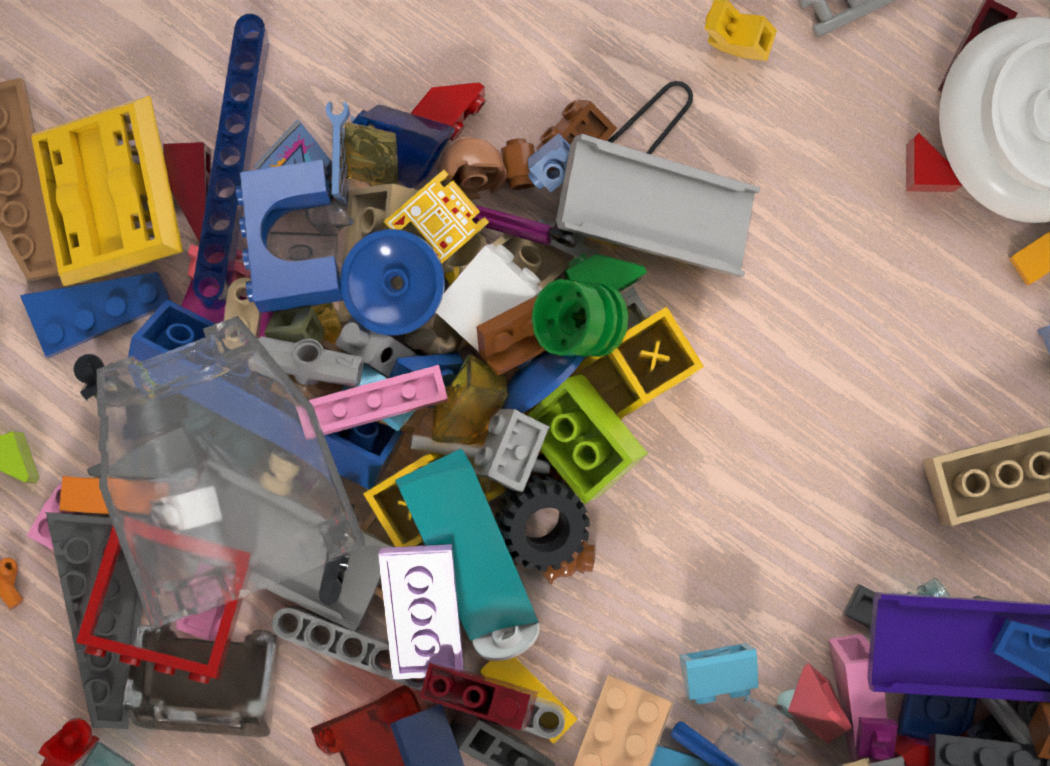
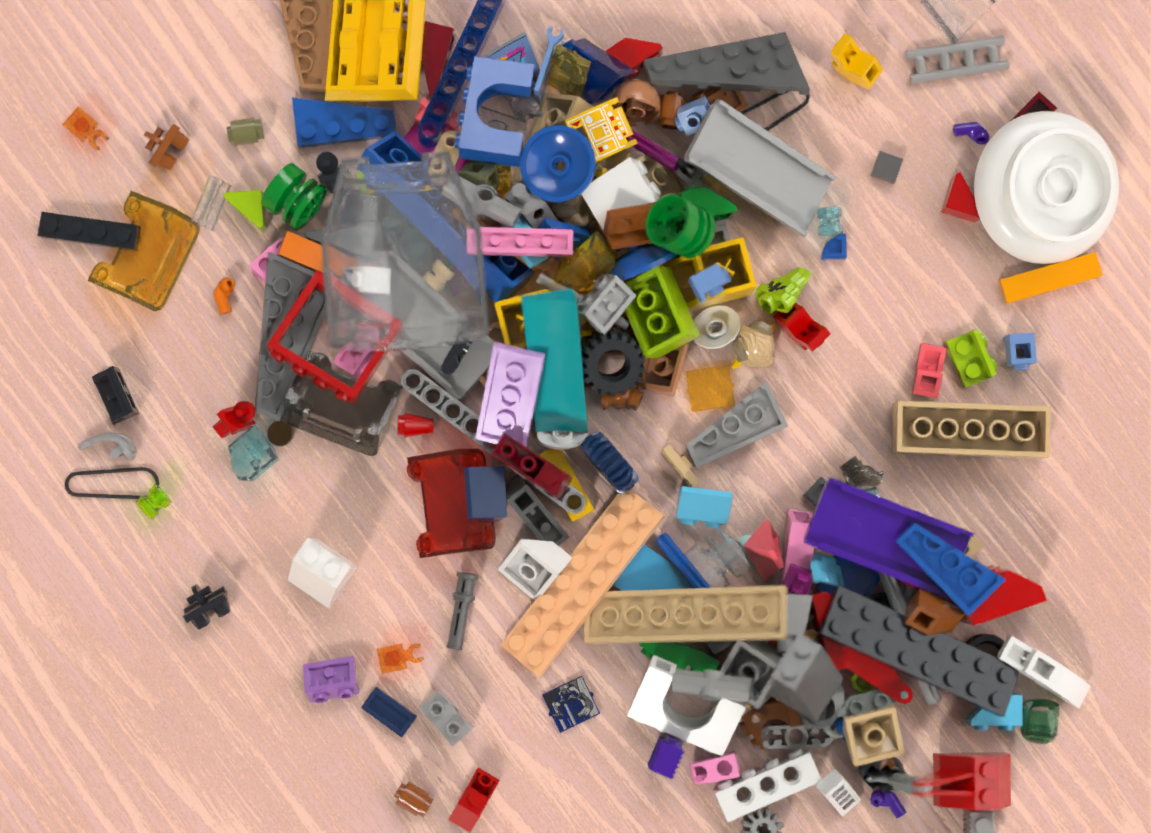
camera: 15 degrees right, 0 degrees up
(57, 427) = (294, 196): none -> green wheel
(135, 743) = (280, 433): none -> dark brown tile
(307, 679) = (414, 425): none -> red cone
(579, 654) = (609, 462): none -> dark blue gear
(587, 82) = (735, 66): none -> dark grey wing
(615, 511) = (663, 372): none -> nougat slope
(641, 382) = (709, 282): none -> medium blue brick
(656, 421) = (715, 319): none -> white dish
(675, 627) = (681, 465): none -> tan plate
(679, 511) = (710, 388): none -> clear yellow piece
(720, 439) = (754, 345): none -> tan hair
(736, 358) = (782, 291): none -> lime rock
(736, 549) = (742, 425): none -> light grey wing
(768, 247) = (829, 221): none -> clear light blue wheel
(774, 396) = (802, 328): none -> red brick
(786, 279) = (835, 248): none -> blue tile
(820, 154) = (886, 167): none -> dark grey tile
(908, 713) = (825, 570): none -> medium azure piece
(909, 567) = (860, 474): none -> clear smoke animal
(915, 73) = (972, 130): none -> dark purple arm
(955, 402) = (929, 370): none -> coral slope
(1006, 369) = (971, 358): none -> lime bracket

